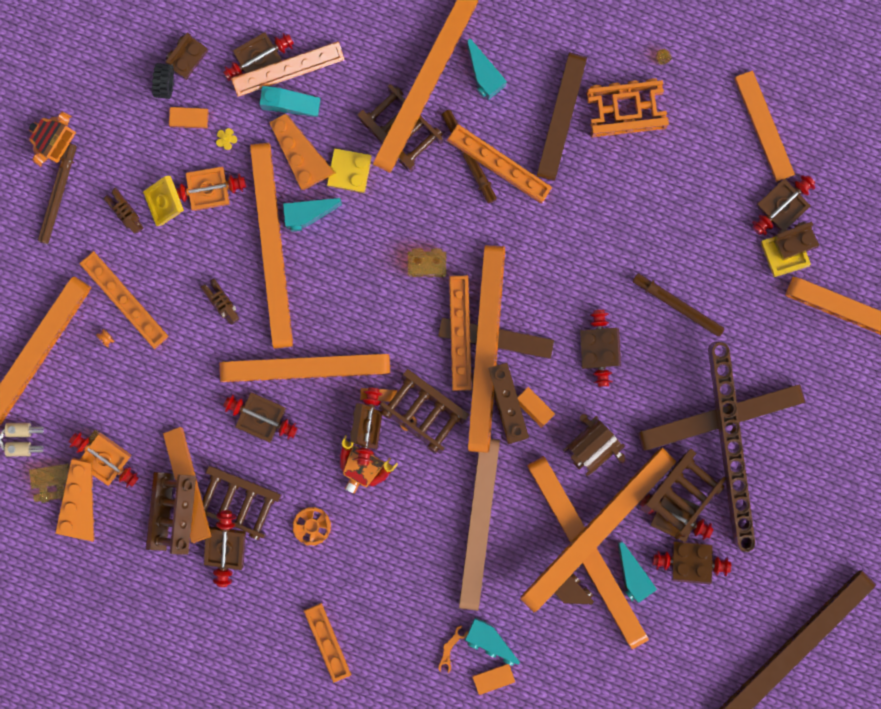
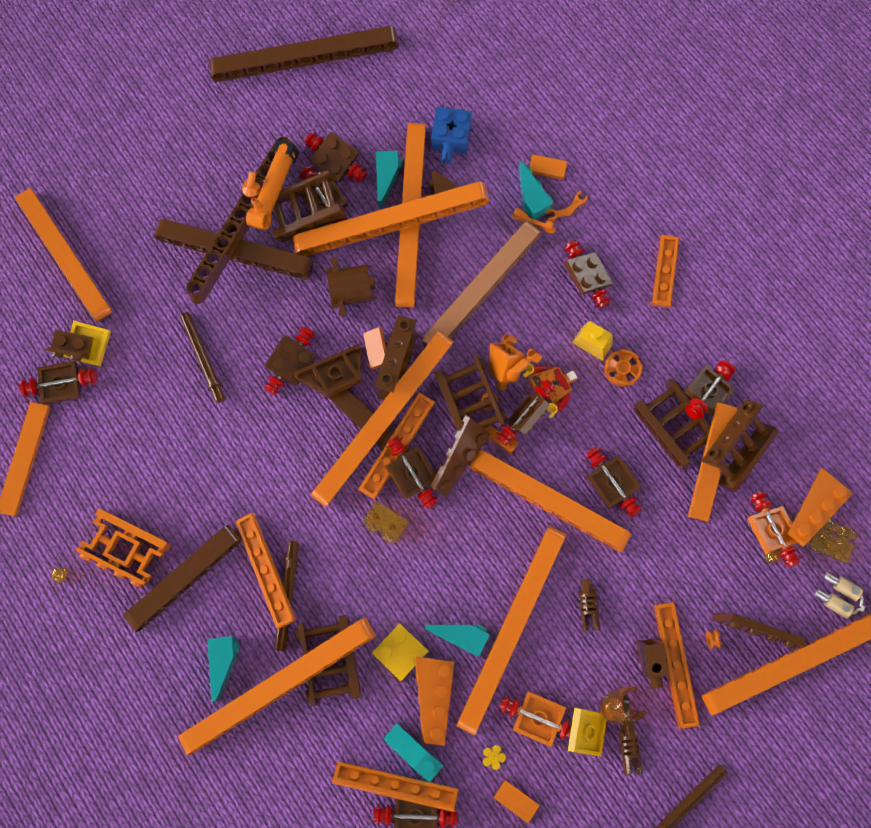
camera: 140 degrees left, 10 degrees down
(59, 369) = (758, 629): none -> reddish brown wing
(144, 288) = (652, 652): none -> reddish brown torso
(150, 234) = (616, 706): none -> clear orange piece
(351, 532) = (594, 340): none -> yellow torso
(393, 593) = (588, 274): none -> plate
(400, 351) = (459, 457): none -> reddish brown wing
(414, 462) = (508, 362): none -> orange torso
(432, 316) = (411, 472): none -> reddish brown plate
(490, 613) = (520, 215): none -> orange piece
(554, 361) = (333, 373): none -> reddish brown wing
(598, 645) = (451, 132): none -> blue brick
(716, 459) = (260, 214): none -> orange piece
(740, 477) = (251, 187): none -> orange plate

